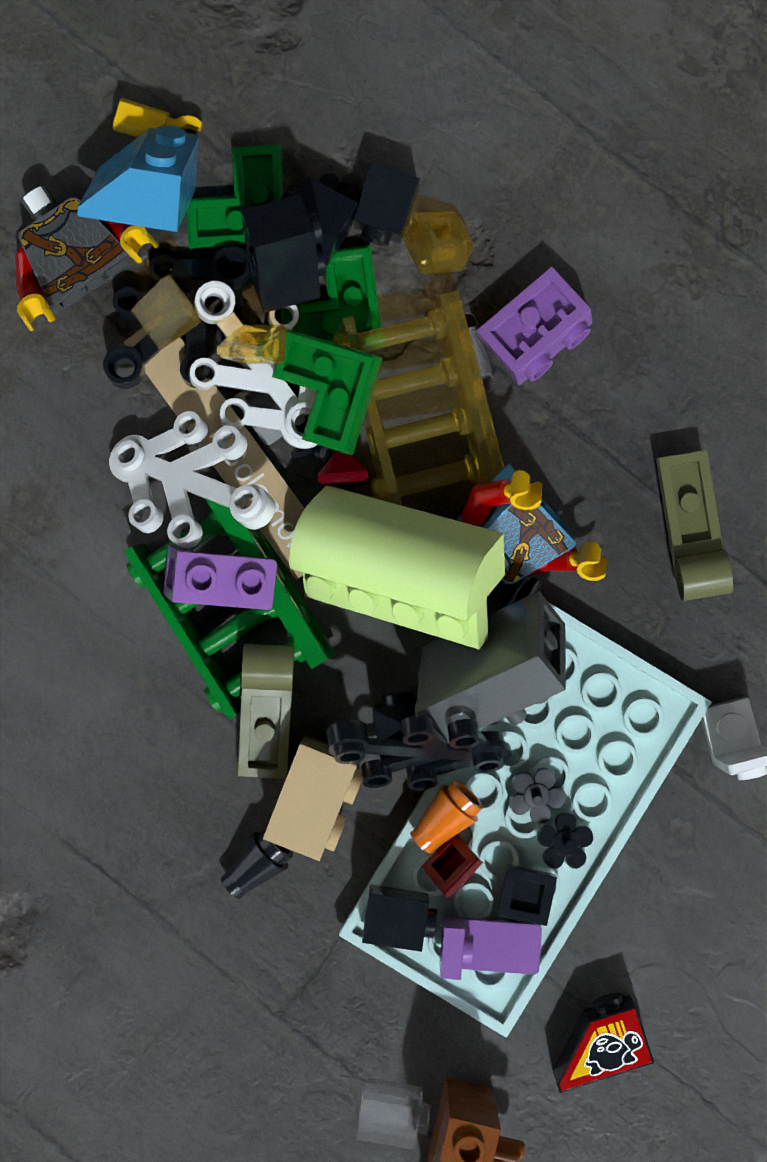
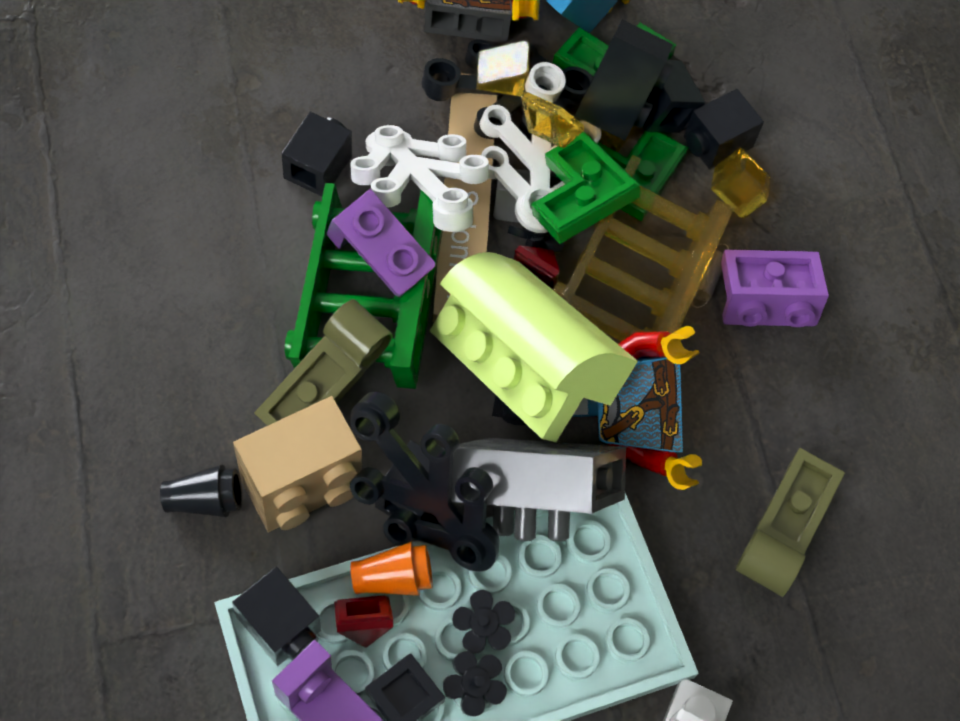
camera: 30 degrees right, 25 degrees down
(86, 517) = (317, 153): none -> black brick

